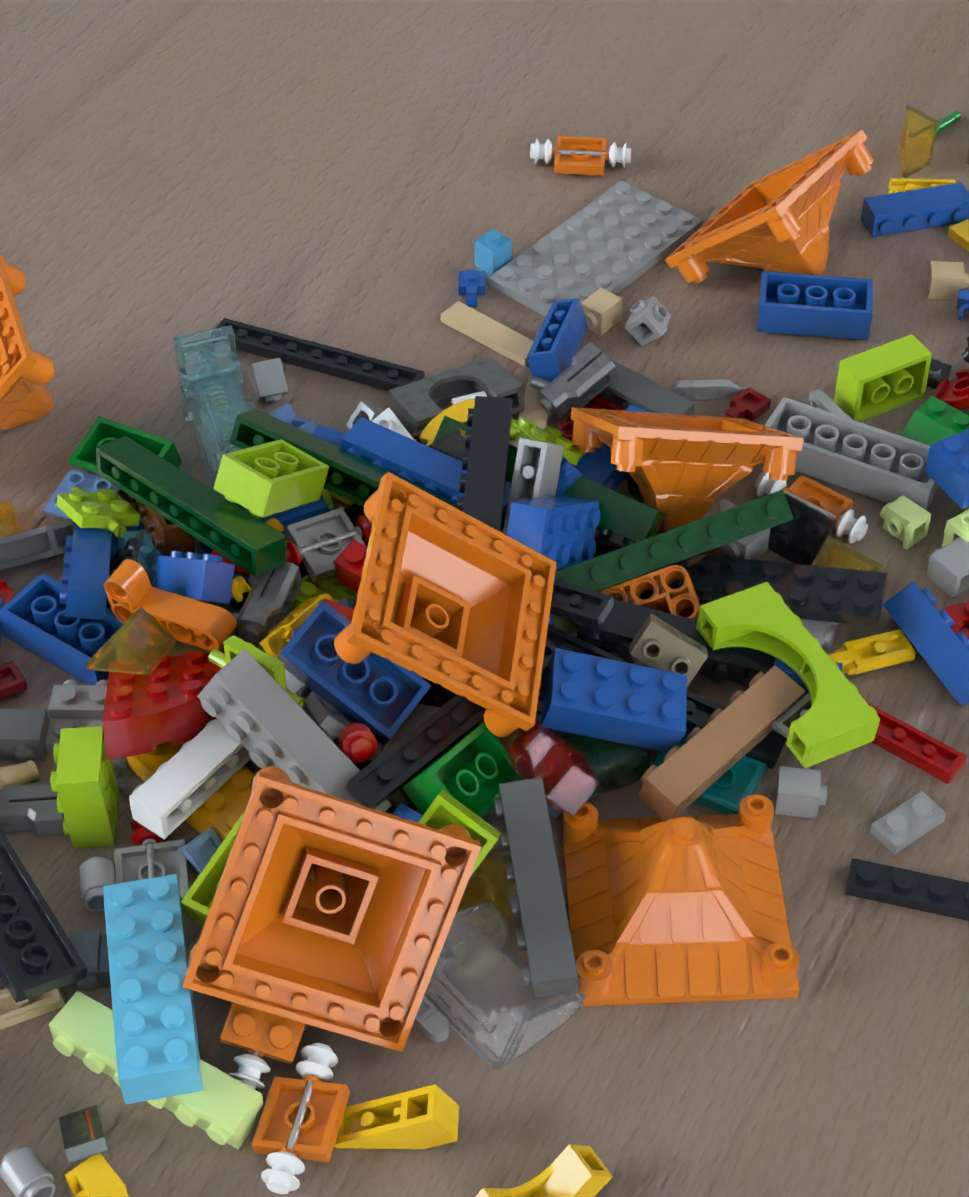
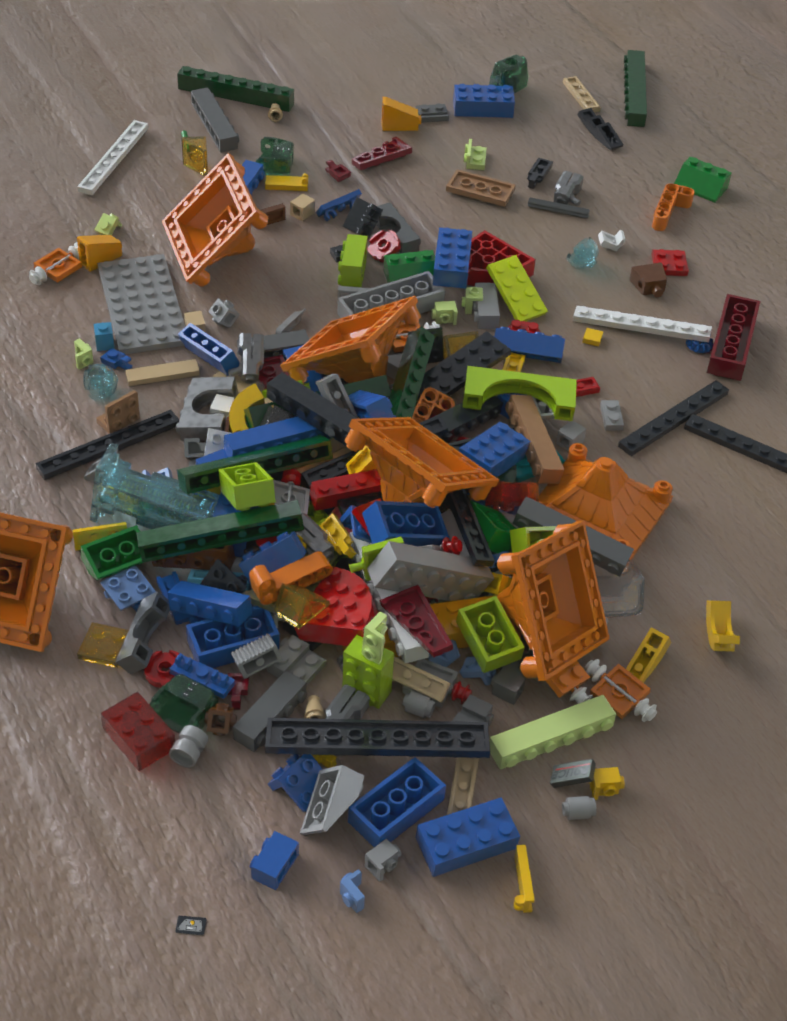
camera: 60 degrees left, 0 degrees up
(41, 665) = (256, 656): none -> light grey brick
(79, 735) = (374, 638): none -> yellowish green bracket
(98, 510) = (162, 578): lime plate -> none
(127, 836) = (420, 680): none -> tan tile
(145, 420) = (86, 535): none -> yellow hinge
(150, 1007) = (519, 701): medium azure brick -> none
(193, 772) = (418, 619): none -> dark red wing
(370, 333) = (120, 413): none -> medium nougat bracket
(411, 292) = (100, 381): none -> clear light blue cylinder
(445, 258) = (83, 354): none -> yellowish green bracket
(637, 165) = (98, 249): none -> light orange slope
(667, 649) = (471, 422): dark tan brick -> none
(697, 150) = (107, 224): none -> yellowish green bracket
(748, 405) = (318, 316): dark red plate -> none
(815, 305) = (276, 254): blue brick -> none
(828, 89) = (112, 157): none -> white plate
(890, 262) = (275, 213): none -> reddish brown panel

